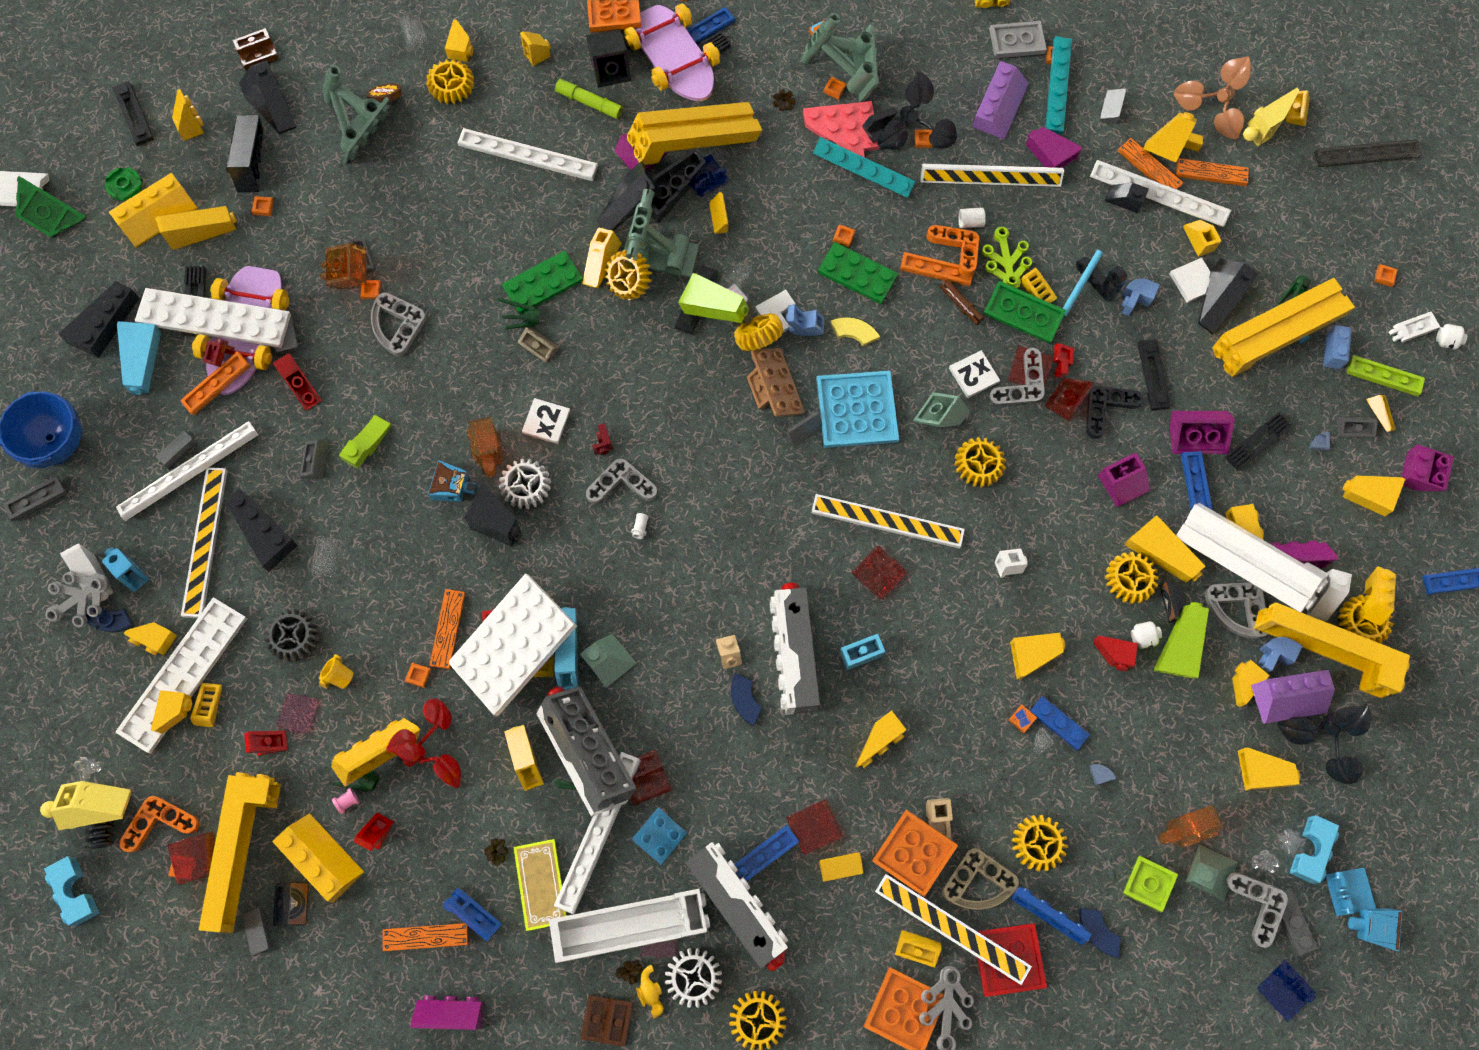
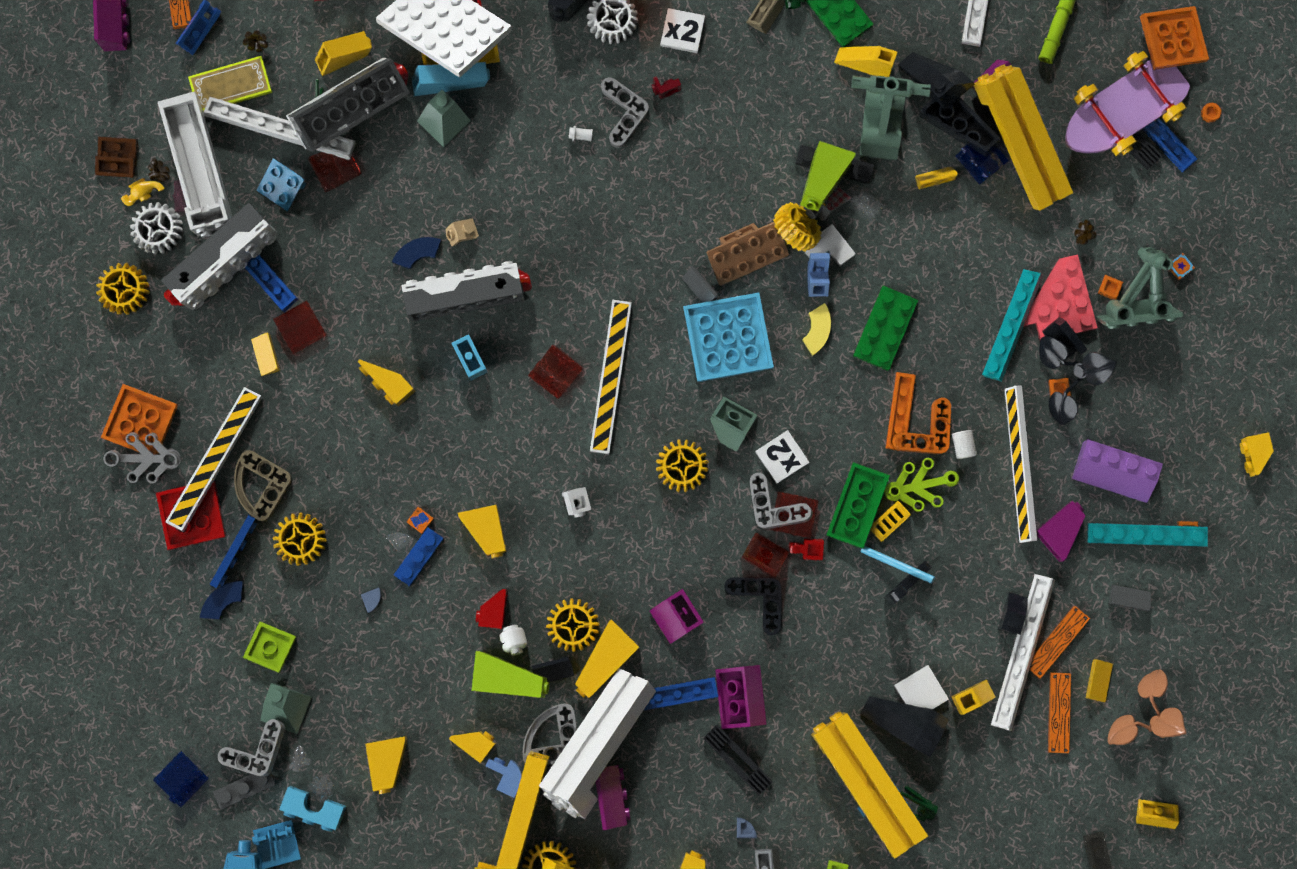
camera: 90 degrees right, 10 degrees up
(608, 57) = (1111, 39): black slope -> none
(635, 281) = (839, 93): yellow gear -> none
(844, 235) = (928, 310): orange tile -> none
(915, 853) = (281, 420): orange plate -> none
(918, 948) = (197, 431): yellow slope -> none
(939, 815) = (314, 441): tan brick -> none
(966, 306) = (856, 445): reddish brown pin -> none
(1017, 39) = (1201, 487): light grey plate -> none
(1138, 291) = (898, 628): medium blue brick -> none
(1157, 399) = (775, 652): black container -> none
(1172, 137) = (1089, 660): yellow slope -> none
(1192, 827) = (322, 682): clear orange hinge -> none
(1247, 518) = (643, 742): yellow slope -> none
(1268, 119) = (1125, 771): light yellow slope -> none
(1294, 696) = (460, 787): medium lavender slope -> none
(1331, 596) = (568, 826): white slope -> none
(1337, 347) = (855, 848): medium blue brick -> none
(1353, 719) = (435, 831): black plant -> none

